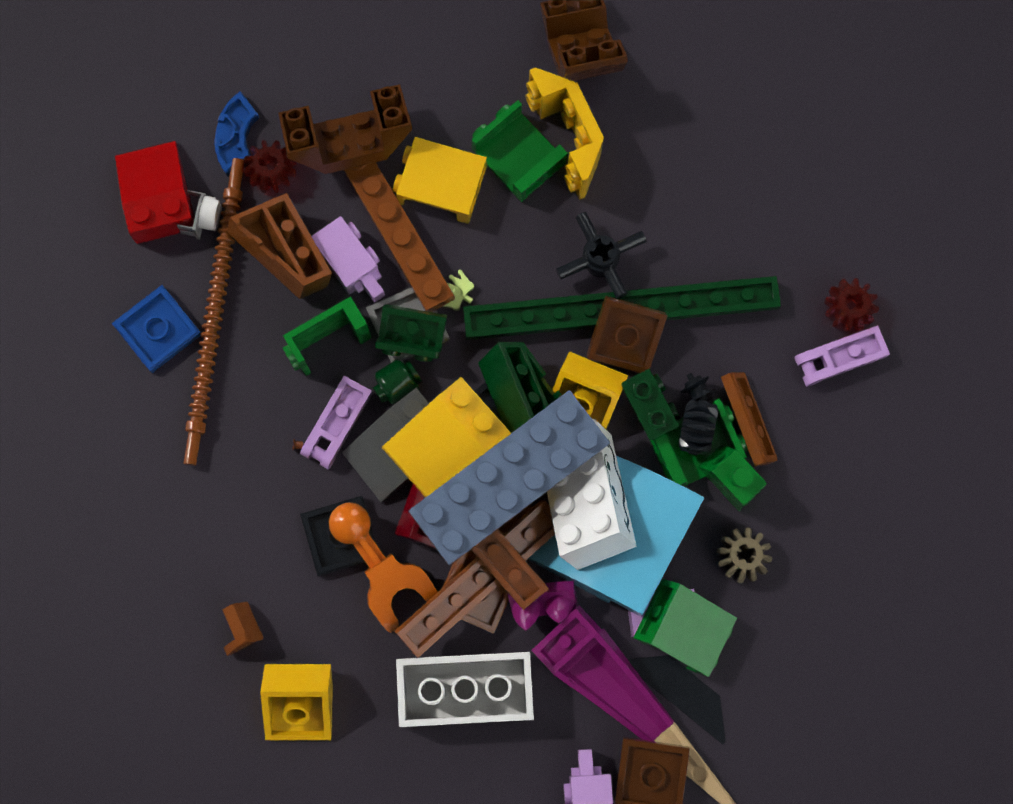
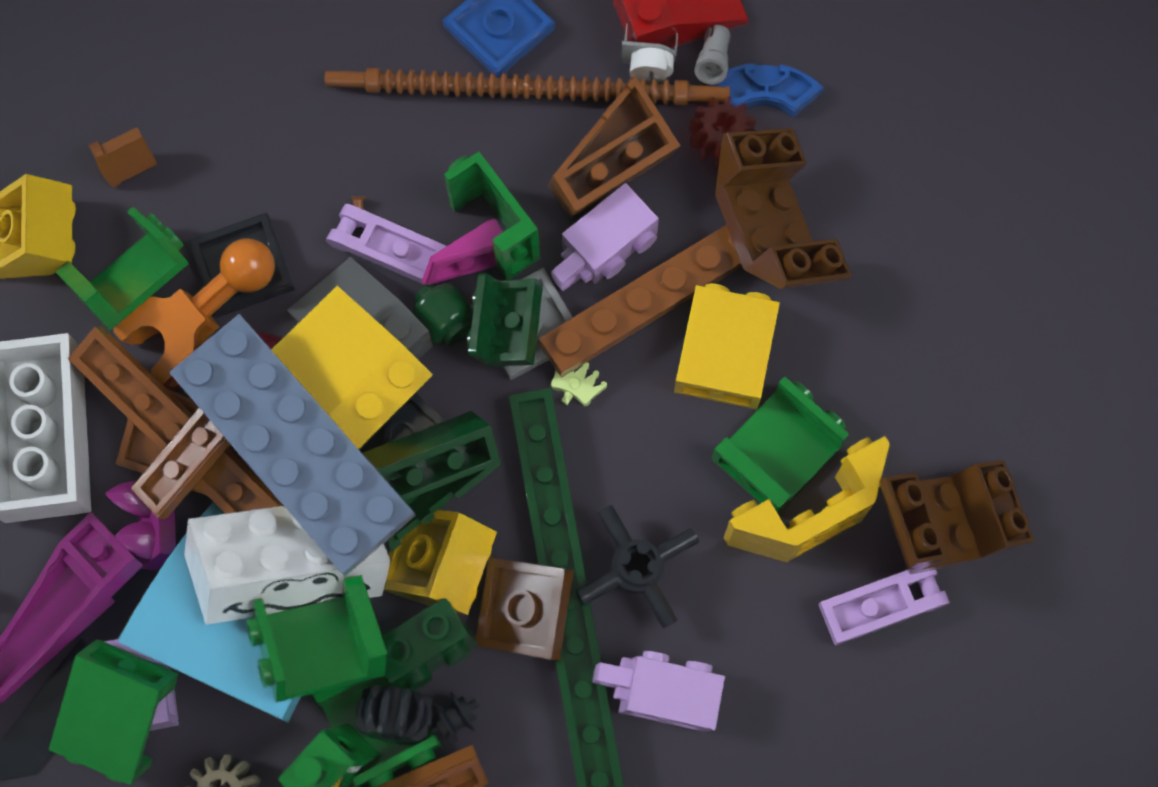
camera: 90 degrees right, 5 degrees down
(211, 166) = (713, 59): none -> light grey pin
(344, 616) = (131, 276): none -> green panel
(350, 351) = (464, 256): none -> dark pink slope
(637, 99) = (880, 605): none -> lavender plate
(651, 468) = (318, 644): none -> green panel
(690, 244) = (665, 691): none -> lavender hinge

